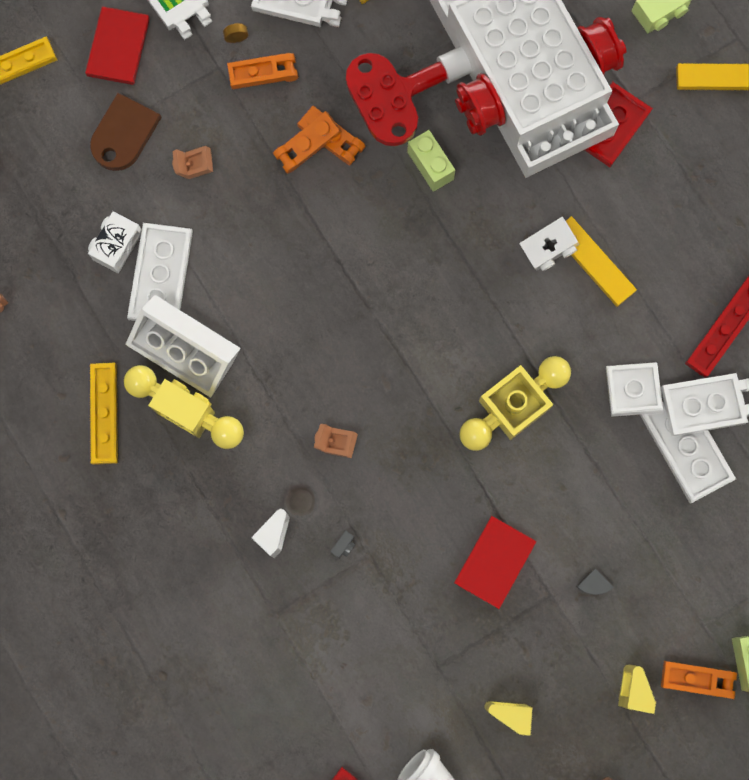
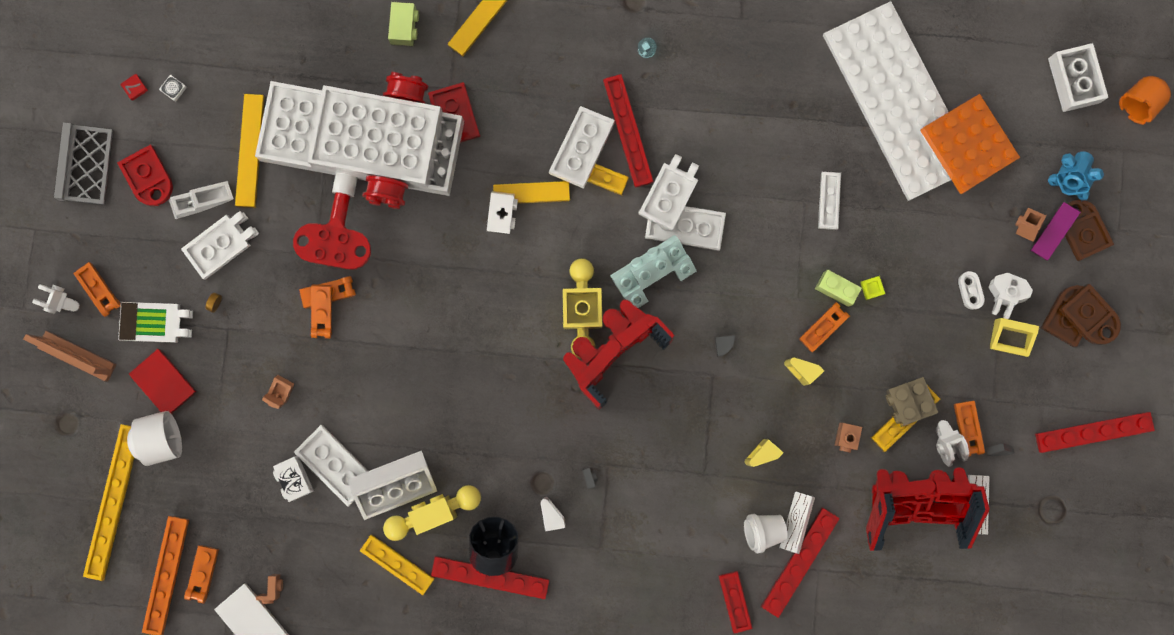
camera: 55 degrees left, 5 degrees up
(55, 76) = (155, 438): none -> white piece
(125, 131) = (224, 419): reddish brown tile -> none
(160, 520) = (508, 582): none -> red plate
(195, 495) = (493, 546): none -> black piece
(262, 71) = (251, 304): orange plate -> none
(335, 441) = (523, 435): nougat bracket -> none
(431, 160) = (392, 243): yellowish green brick -> none
(495, 562) = (667, 393): red tile -> none
(526, 467) = (618, 343): none -> red container
(613, 442) = (650, 268): none -> light aqua bracket
(634, 389) = (627, 230): white tile -> none
(667, 317) = (608, 179): none -> yellow tile
(683, 275) = (581, 147): none -> white plate

